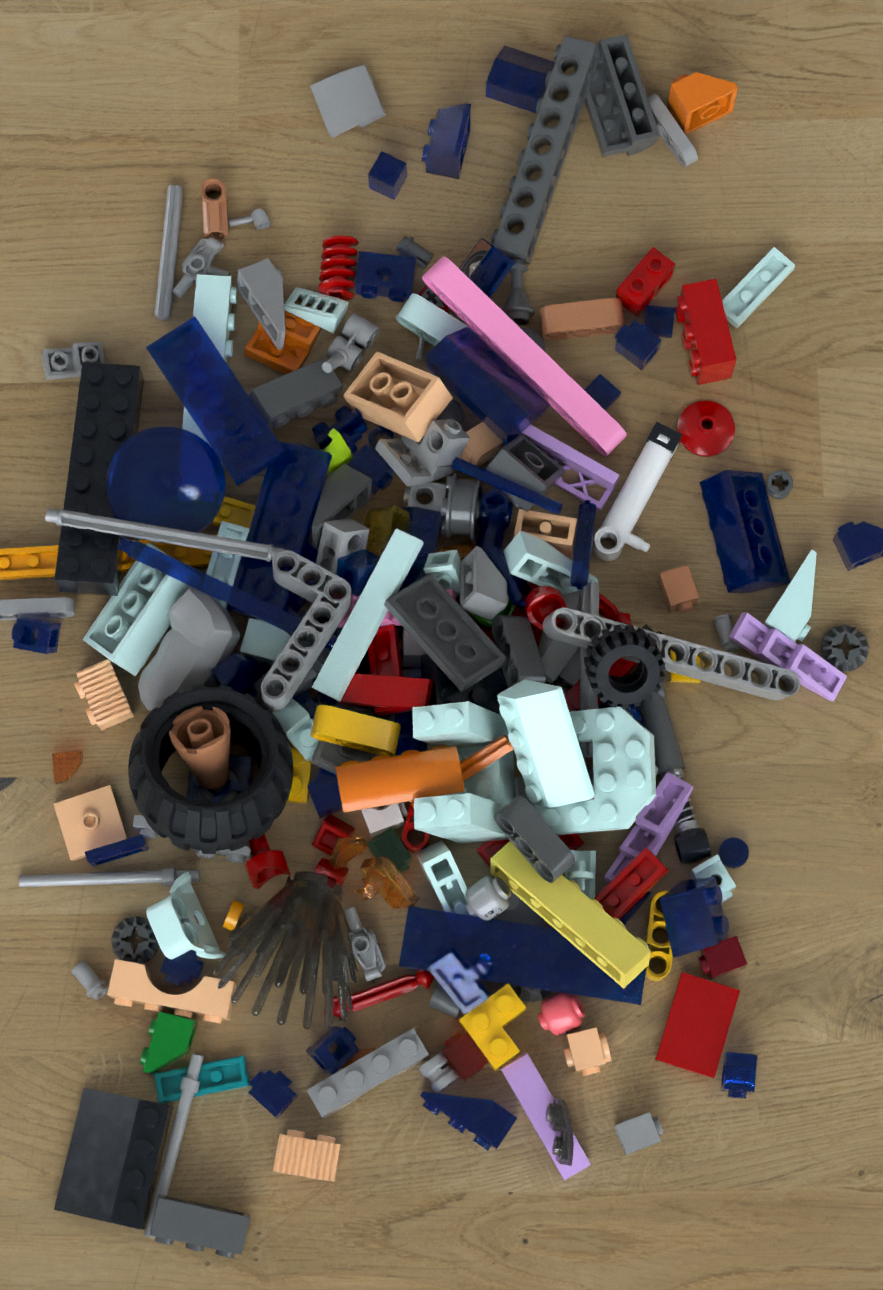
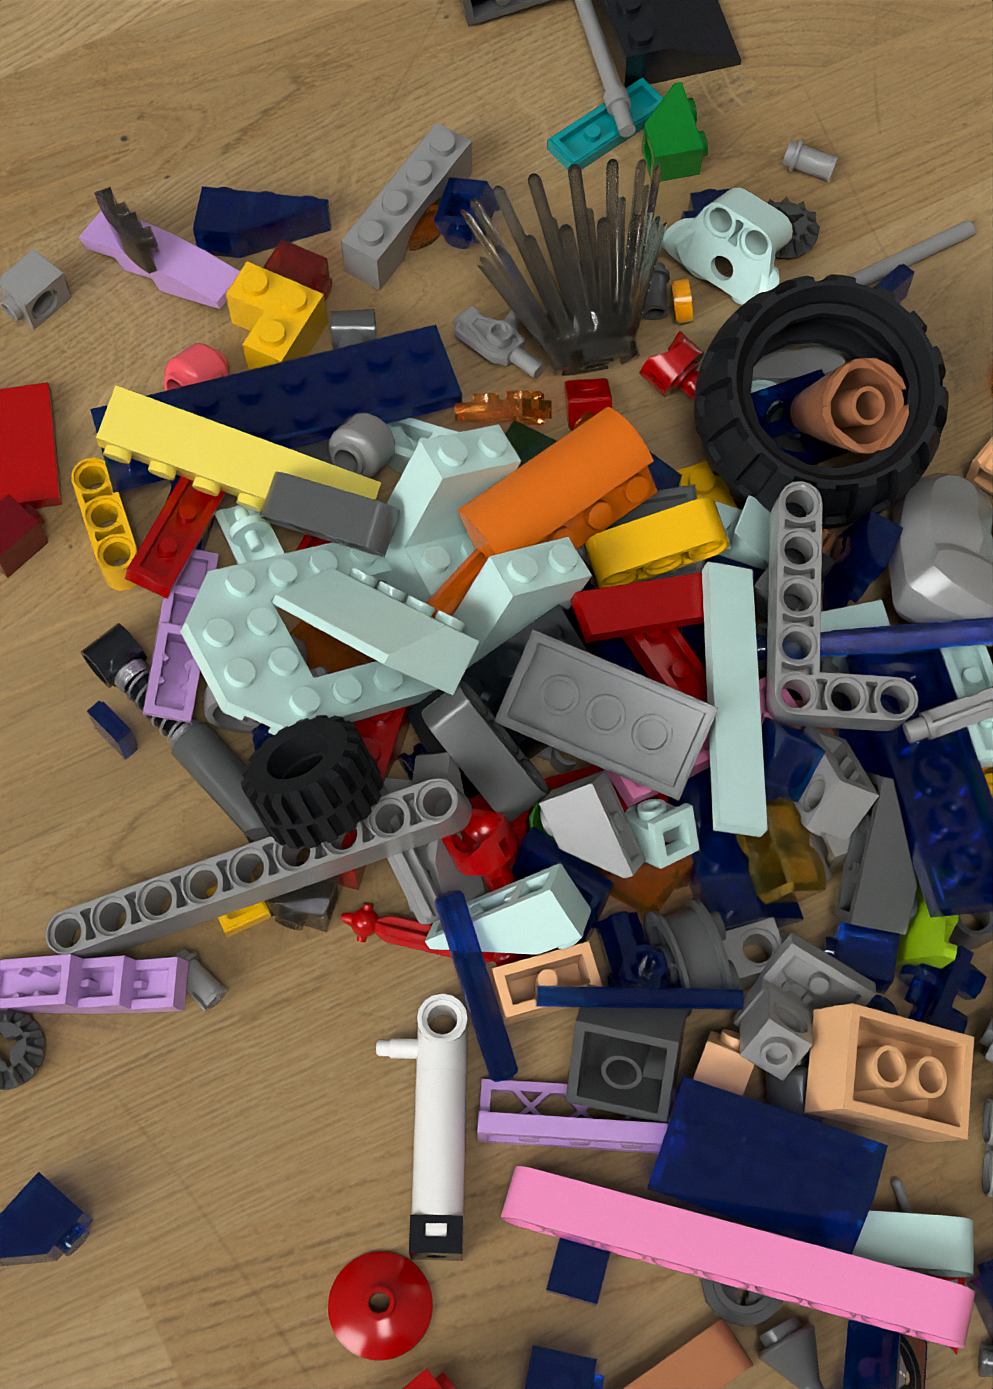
camera: 150 degrees right, 10 degrees down
(90, 821) = (949, 320): light nougat plate -> none
(132, 983) = (756, 167): light nougat arch -> none
(272, 1091) = (513, 139): clear blue brick -> none
(307, 1157) = (431, 94): light nougat brick -> none
(385, 991) = (449, 298): red wheel -> none
(439, 1072) = (325, 243): light grey wheel -> none
(462, 980) = (338, 326): clear blue plate -> none
(587, 1051) = (141, 349): light nougat brick -> none
(678, 589) = (300, 1006): nougat brick -> none
(694, 915) = (67, 546): clear blue slope -> none
(712, 799) = (113, 729): none -> clear blue tile
(714, 867) = (71, 634): light aqua brick -> none
(733, 853) = (53, 681): clear blue tile -> none
(744, 531) = (237, 1151): clear blue slope -> none
(773, 490) = (210, 1280): dark grey bush -> none
(795, 605) = (108, 1059): light aqua slope -> none

